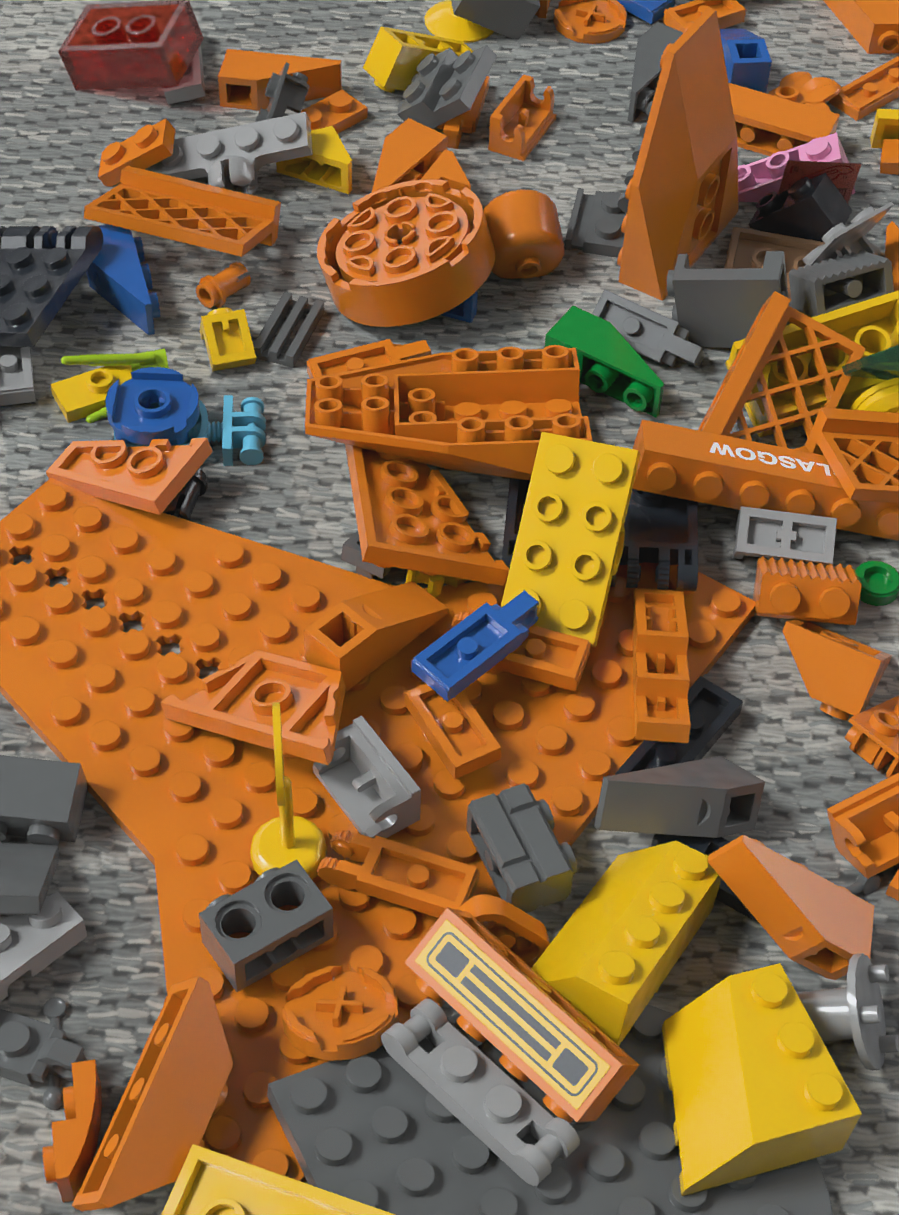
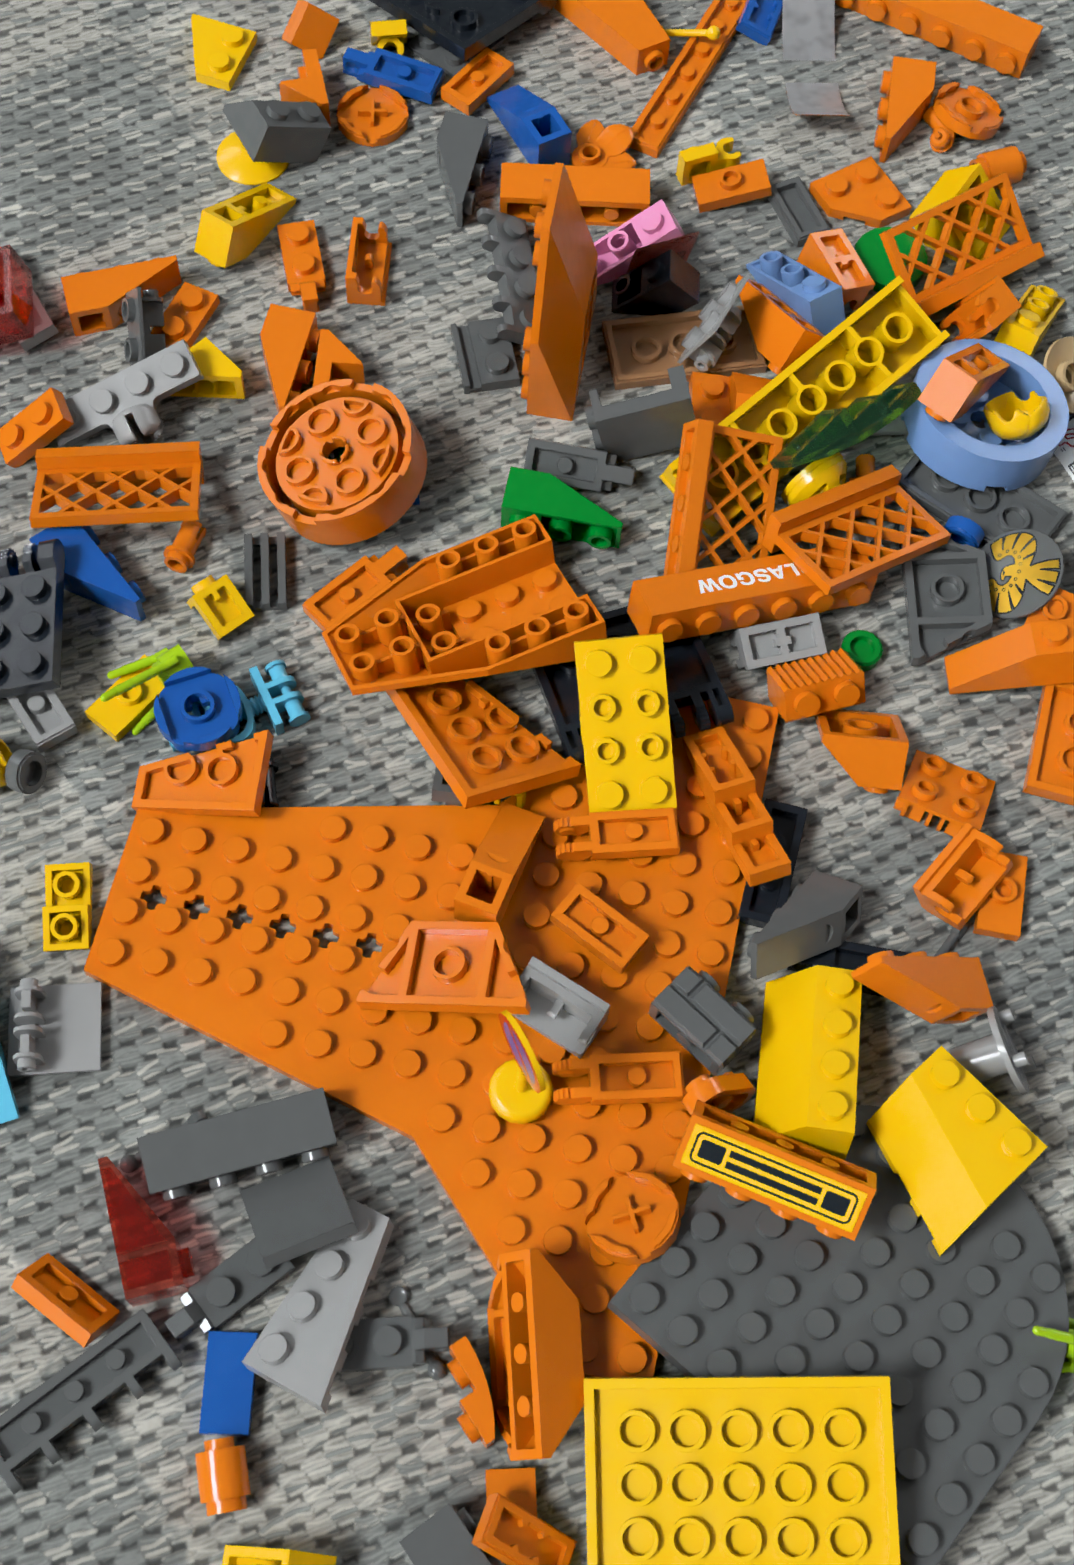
camera: 25 degrees left, 15 degrees up
(274, 933) = (548, 1171): dark grey brick -> none
(445, 86) = (288, 256): dark grey plate -> none
(475, 645) = (592, 854): blue hinge -> none
(479, 1093) = (768, 1242): light grey plate -> none
(524, 234) = (434, 399): orange head -> none
(840, 282) = (729, 367): dark grey brick -> none

